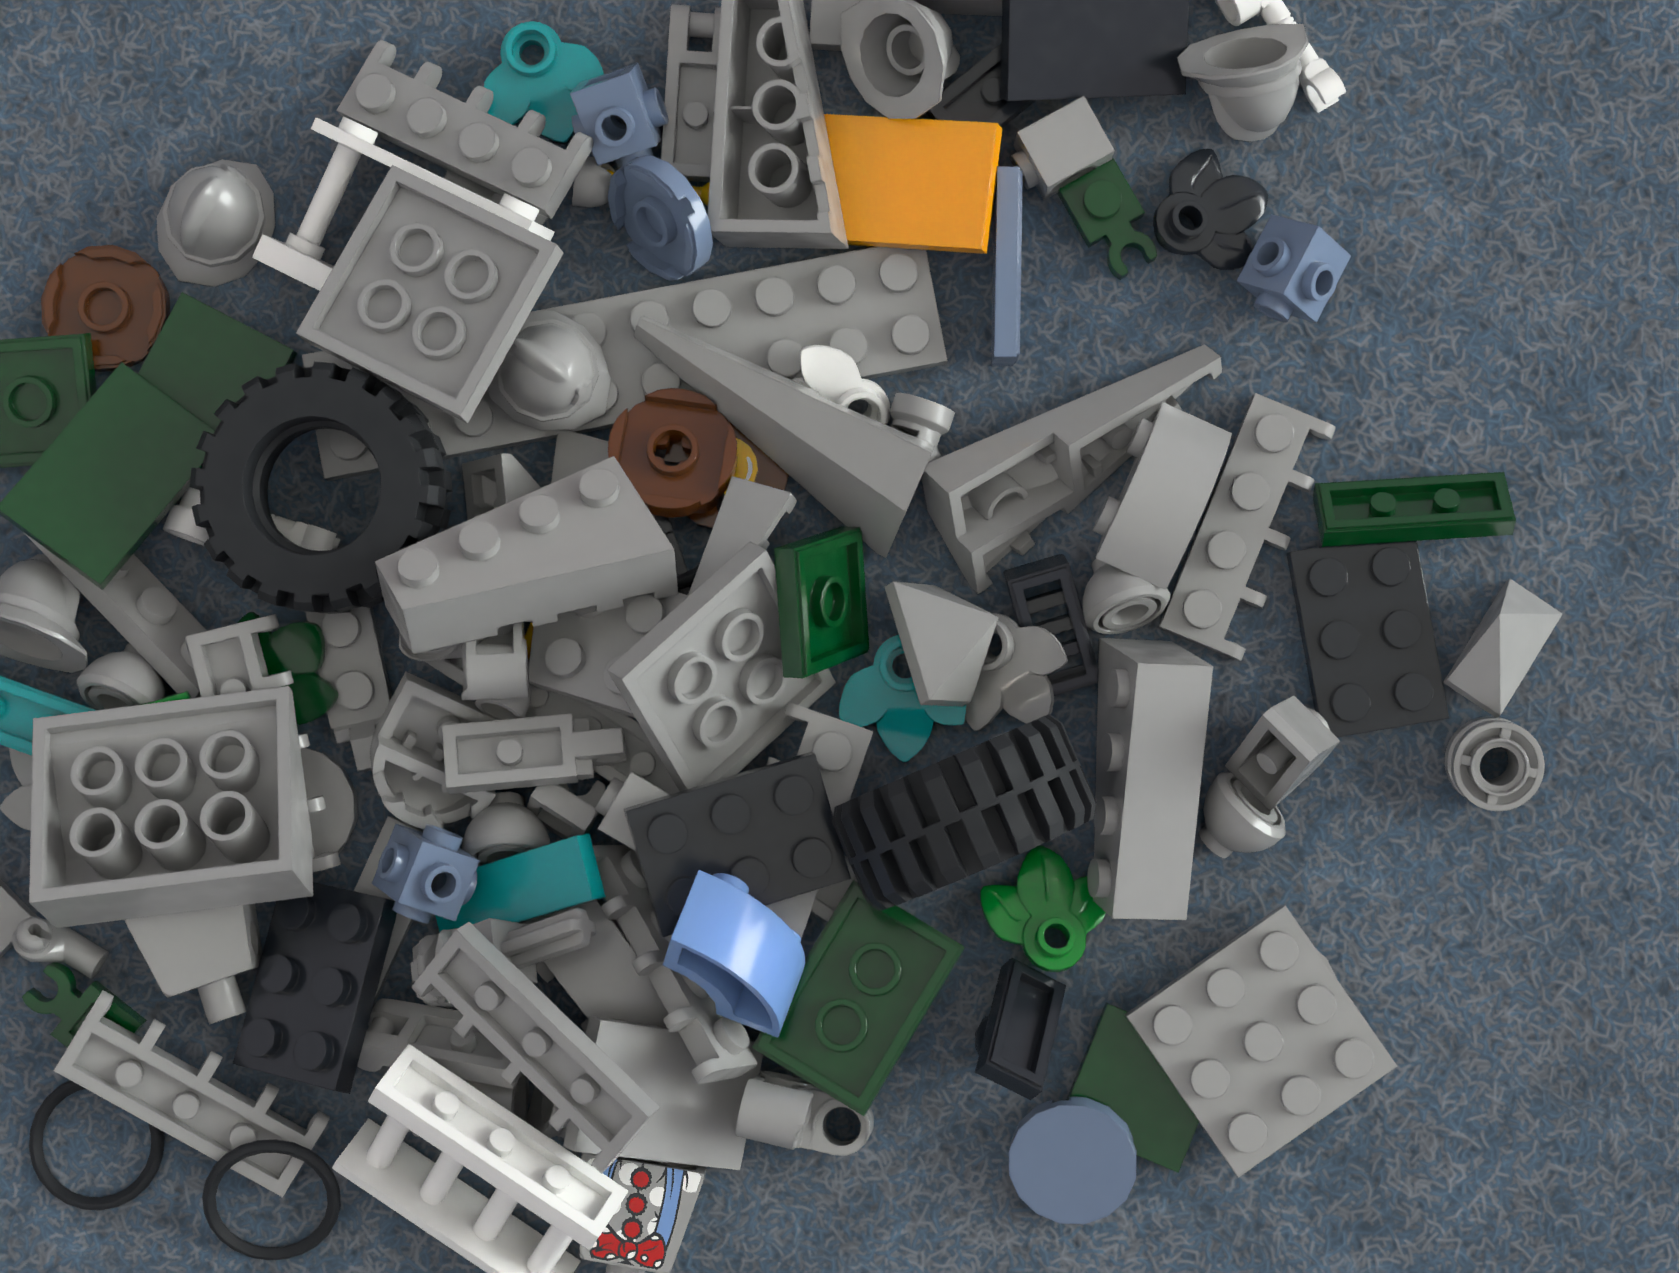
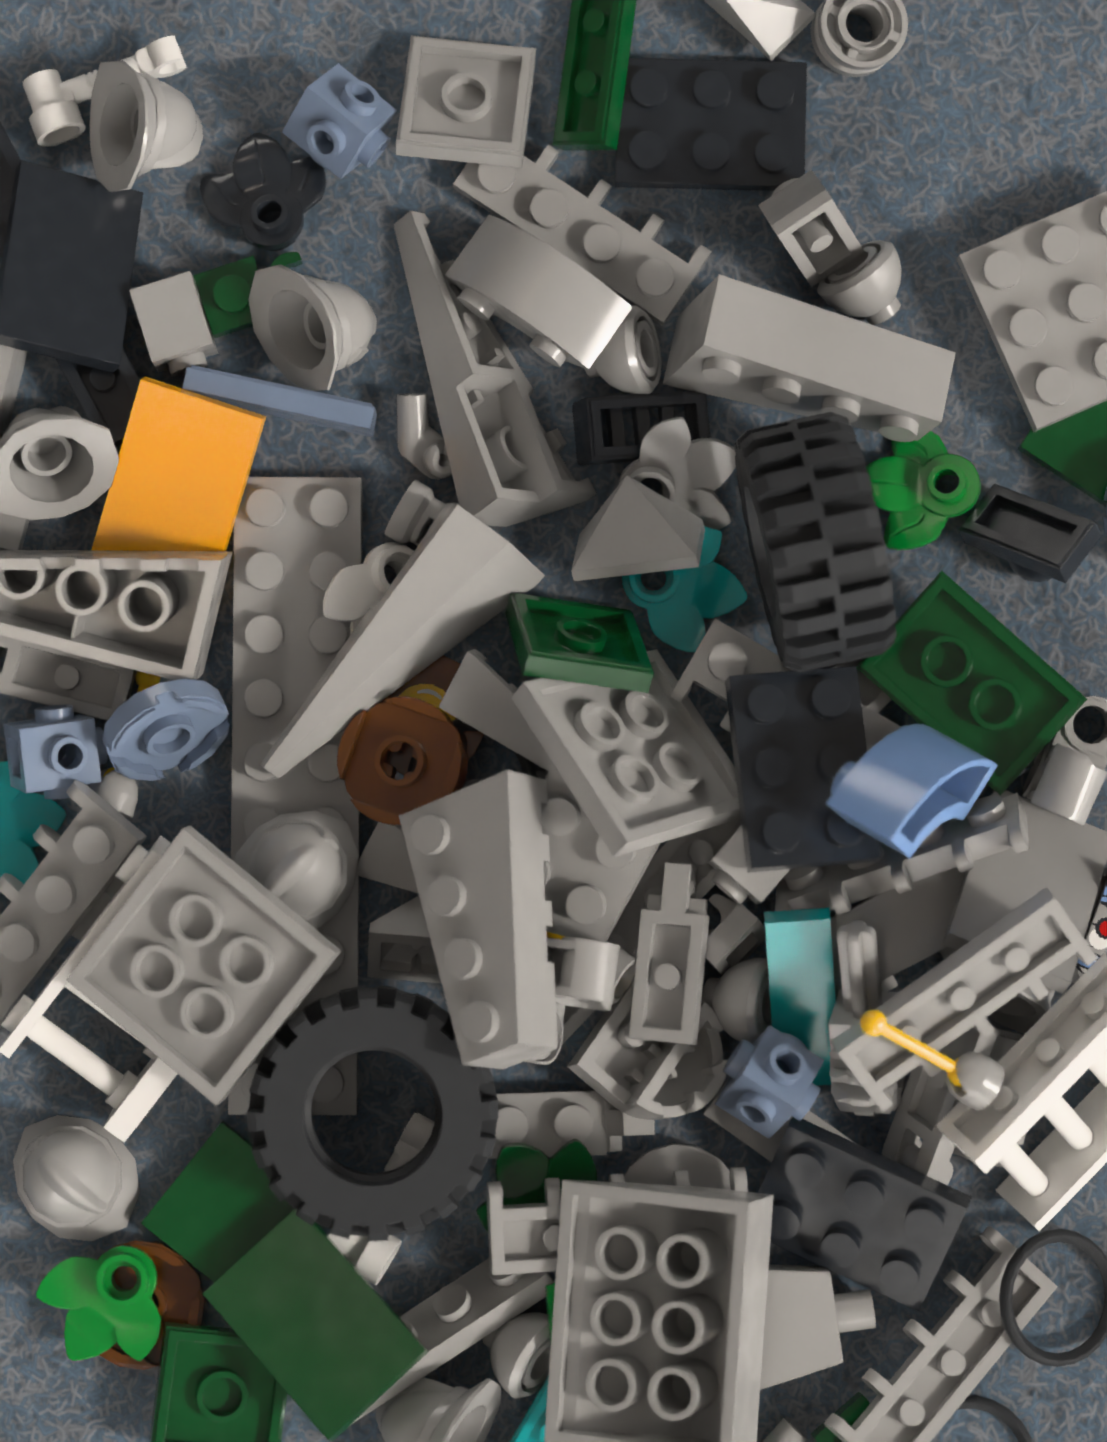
camera: 80 degrees left, 0 degrees up
(91, 268) = (102, 1310): none -> green plate
(459, 1068) = (970, 1078): none -> hinge
(996, 408) = (419, 441): none -> light grey arm
(1086, 281) = (309, 325): none -> light grey piece
(1339, 389) = (466, 101): none -> light grey tile

